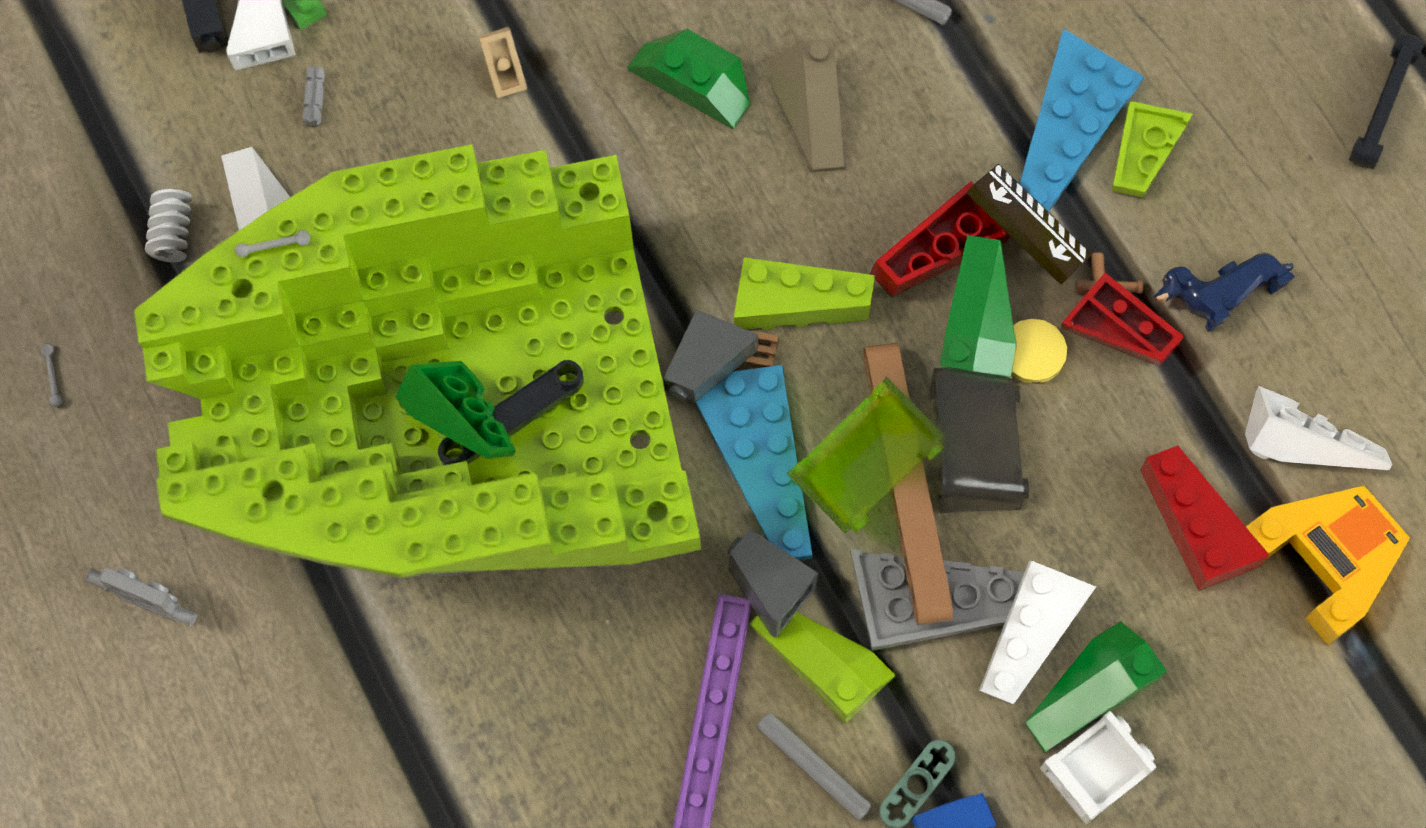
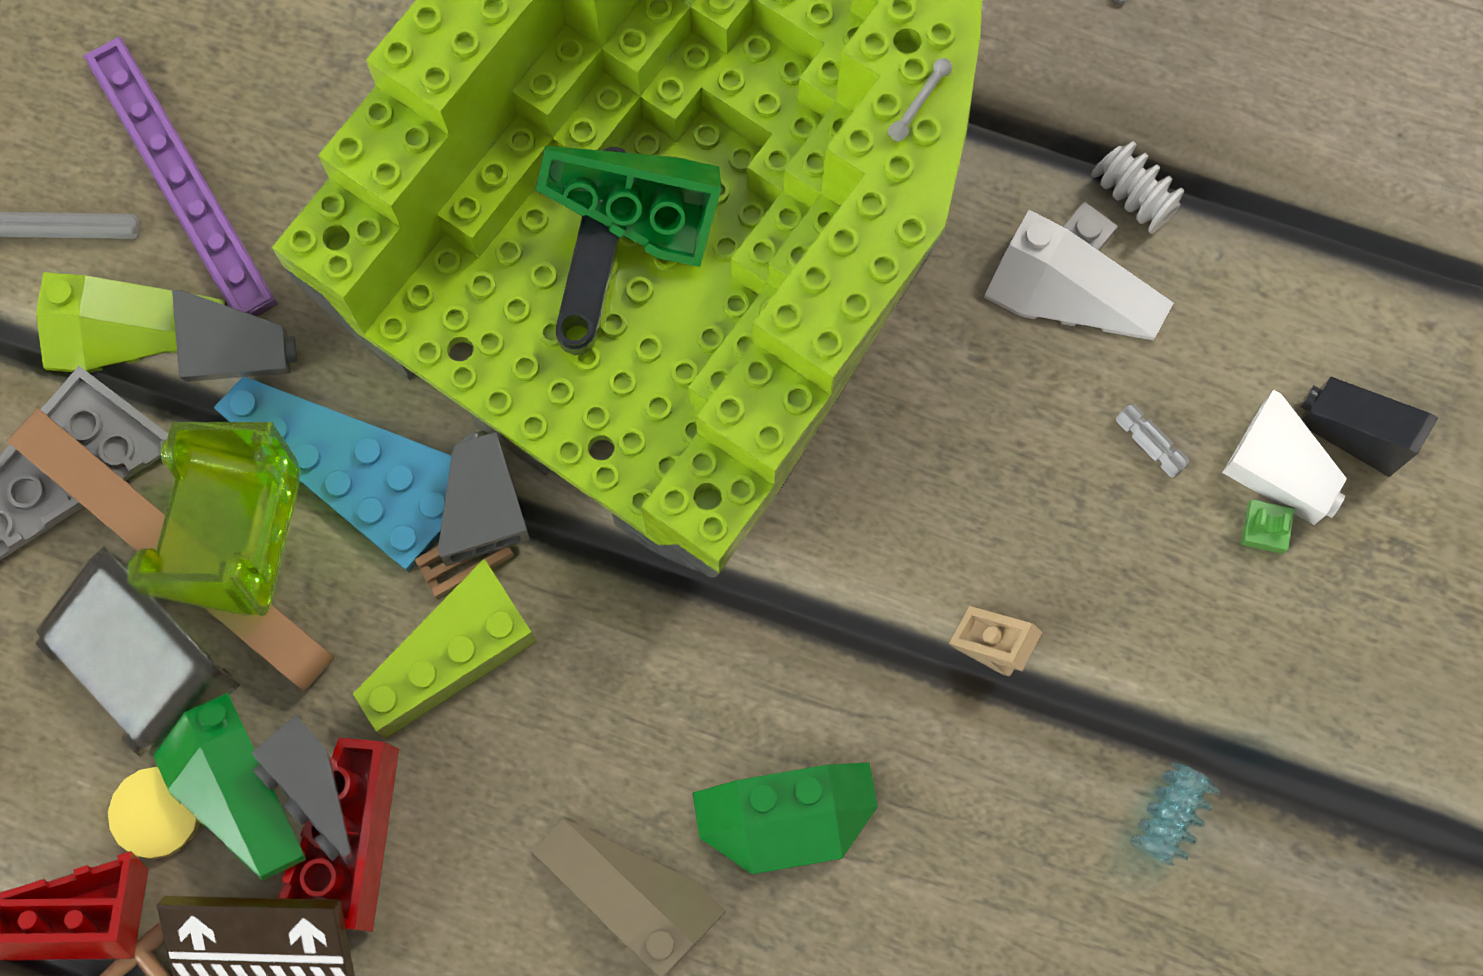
camera: 135 degrees right, 5 degrees up
(219, 229) = (1091, 226): none -> light grey plate
(931, 266) = (305, 774): none -> dark grey slope

